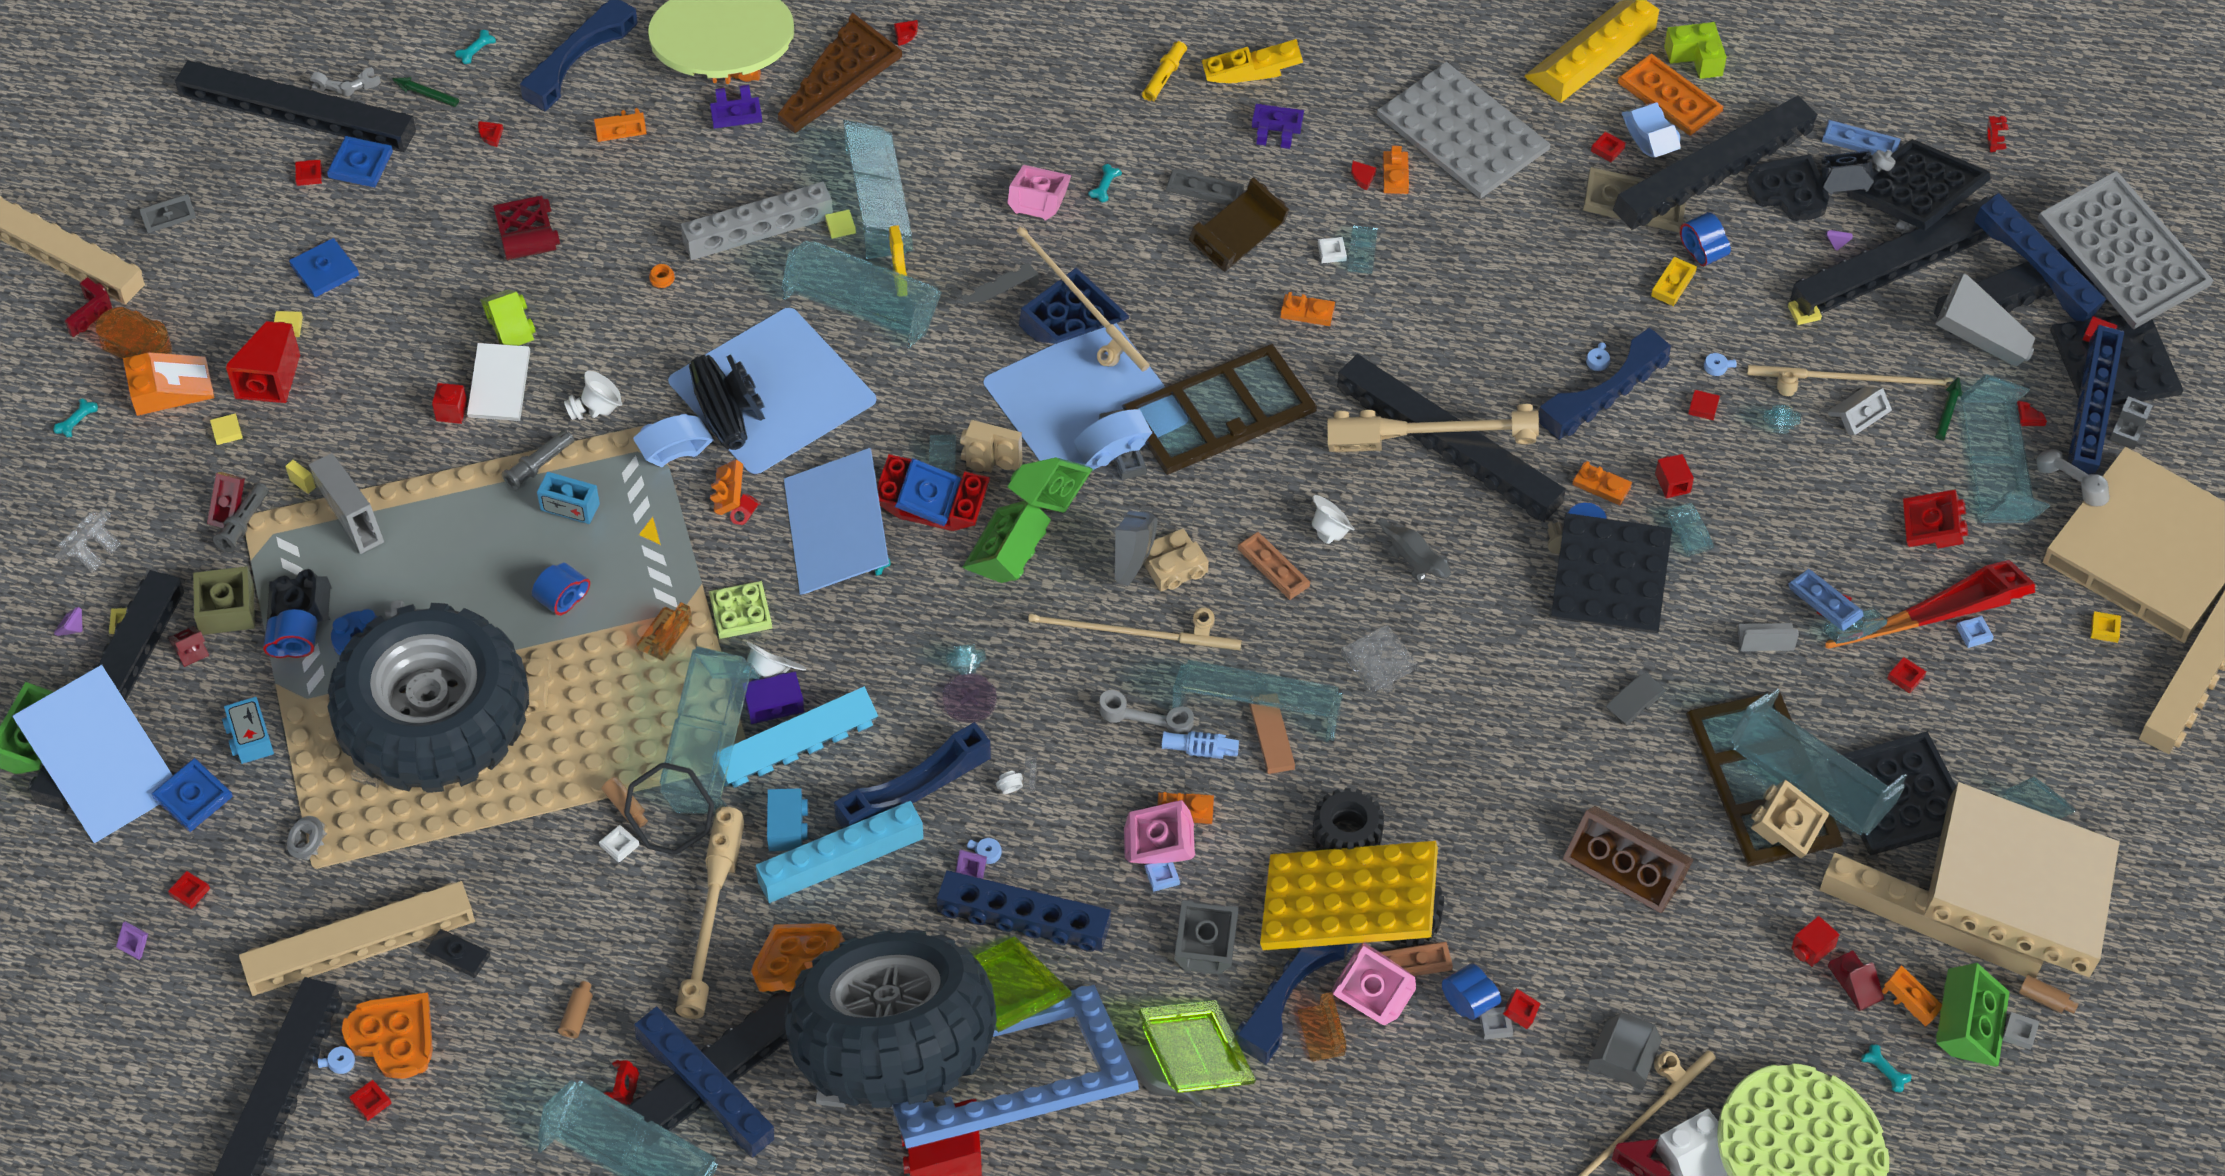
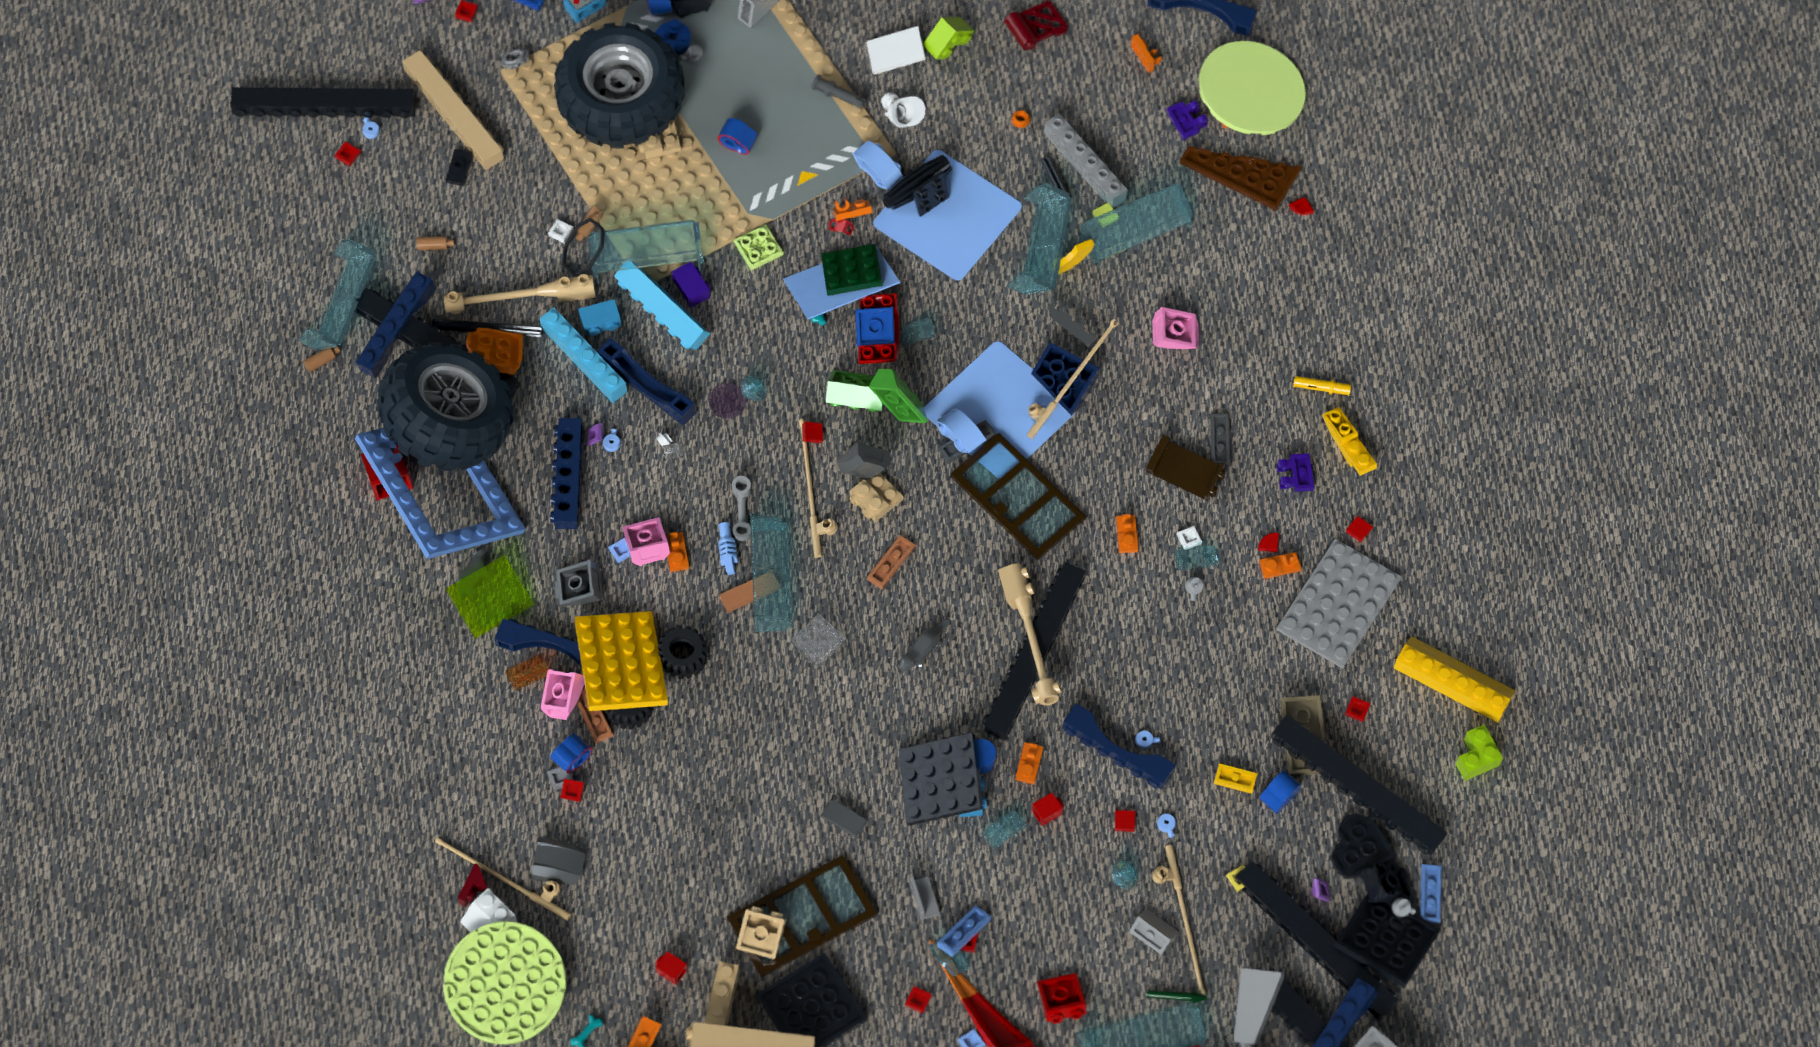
camera: 75 degrees right, 10 degrees up
(393, 1033) = (394, 150): orange plate -> none
(449, 403) = (868, 27): red brick -> none
(568, 497) = (808, 118): dark azure brick -> none
(620, 1092) = (397, 280): red piece -> none
(665, 631) = (723, 207): clear orange panel -> none
(743, 973) = (471, 326): none -> black axle
(759, 263) = (1052, 173): none -> black axle
(769, 664) = (717, 274): white piece -> none
(824, 503) = (851, 269): none -> dark green plate
(990, 446) = (925, 354): tan plate -> none
(1019, 983) = (507, 475): clear neon green piece -> none
(1054, 607) = (812, 432): none -> red tile
(1101, 191) = (1191, 372): teal piece -> none
(1329, 520) = (939, 587): white piece -> none
(1369, 86) = (1359, 529): none -> red tile
(1404, 259) = (1194, 586): none -> light grey piece
(1627, 859) = (708, 835): reddish brown slope -> none
(1651, 130) = (1380, 735): light blue brick -> none
(1676, 96) = (1428, 745): orange tile -> none
(1813, 767) = (812, 942): clear light blue piece -> none
(1857, 980) = (651, 1001): dark red slope -> none
(1992, 132) = (1465, 989): red piece -> none

